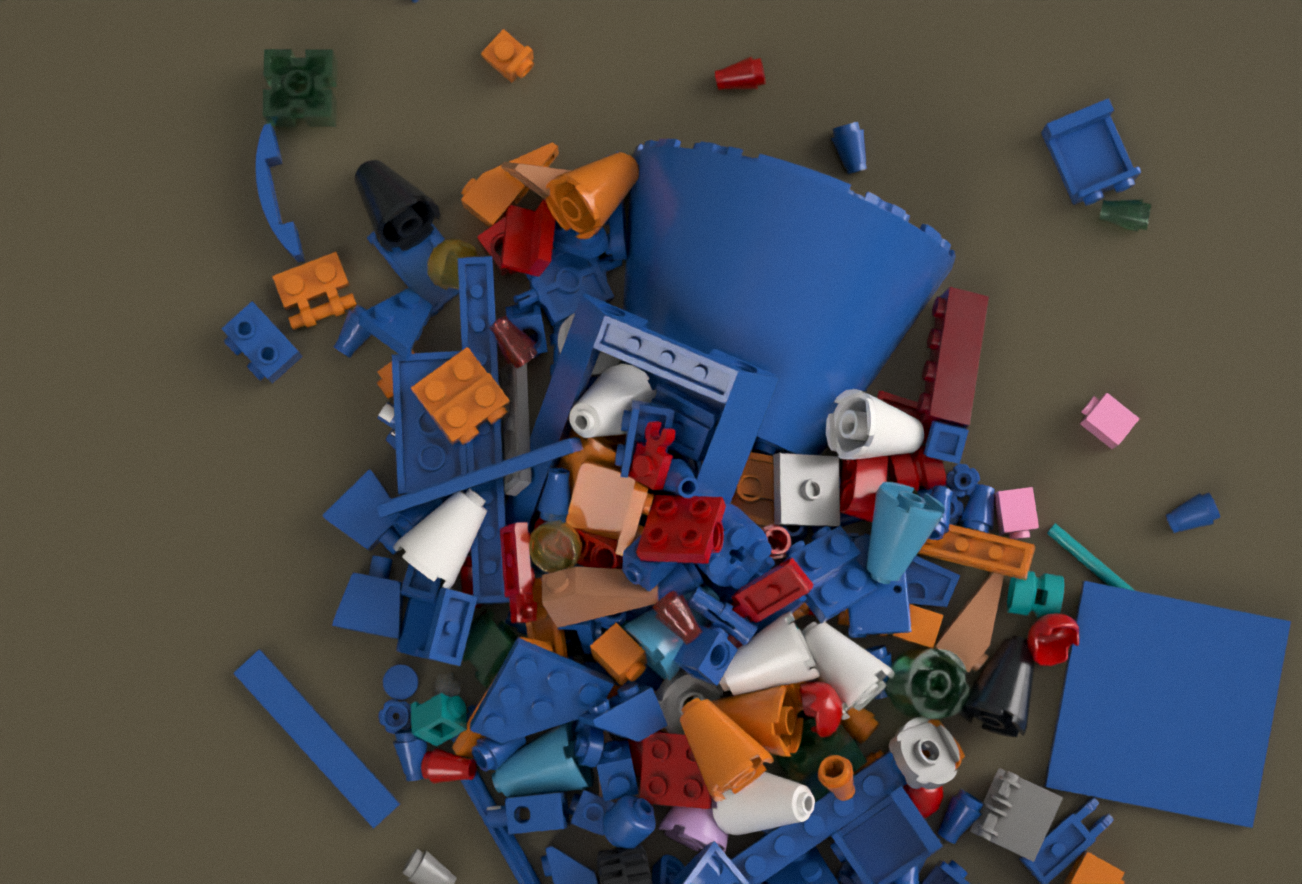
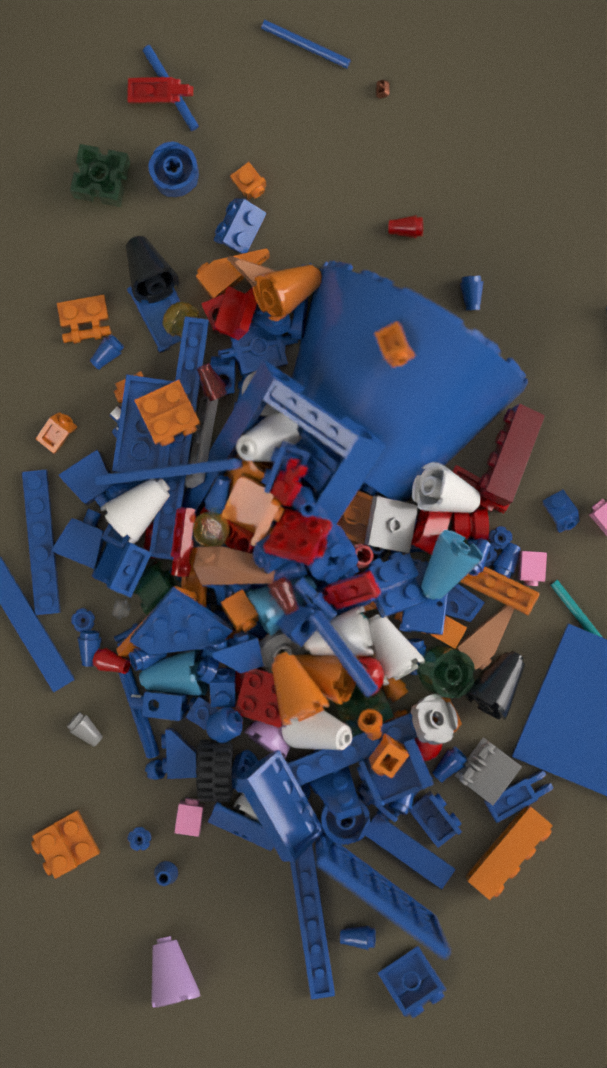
camera: 15 degrees right, 5 degrees up
(261, 342) = (40, 348): blue brick -> none
(266, 157) = (69, 218): blue slope -> none
(306, 456) = (56, 431): none -> orange bracket
(314, 617) = (41, 542): none -> blue plate
(398, 320) = (136, 351): blue wing -> none
(400, 682) = (91, 597): blue tile -> none
(411, 43) = (173, 155): none -> blue brick
(438, 718) = (110, 628): teal brick -> none
(508, 119) = (239, 225): none -> bracket
(762, 236) = (394, 345): none -> orange bracket
(778, 681) = (343, 653): none -> blue axle
(882, 819) = (390, 764): none -> orange brick
(946, 442) = (493, 510): blue tile -> none
(1023, 593) = (524, 625): teal wheel -> none
(1041, 425) = (562, 511): none -> blue bracket
(1051, 638) = (537, 658): red hair -> none

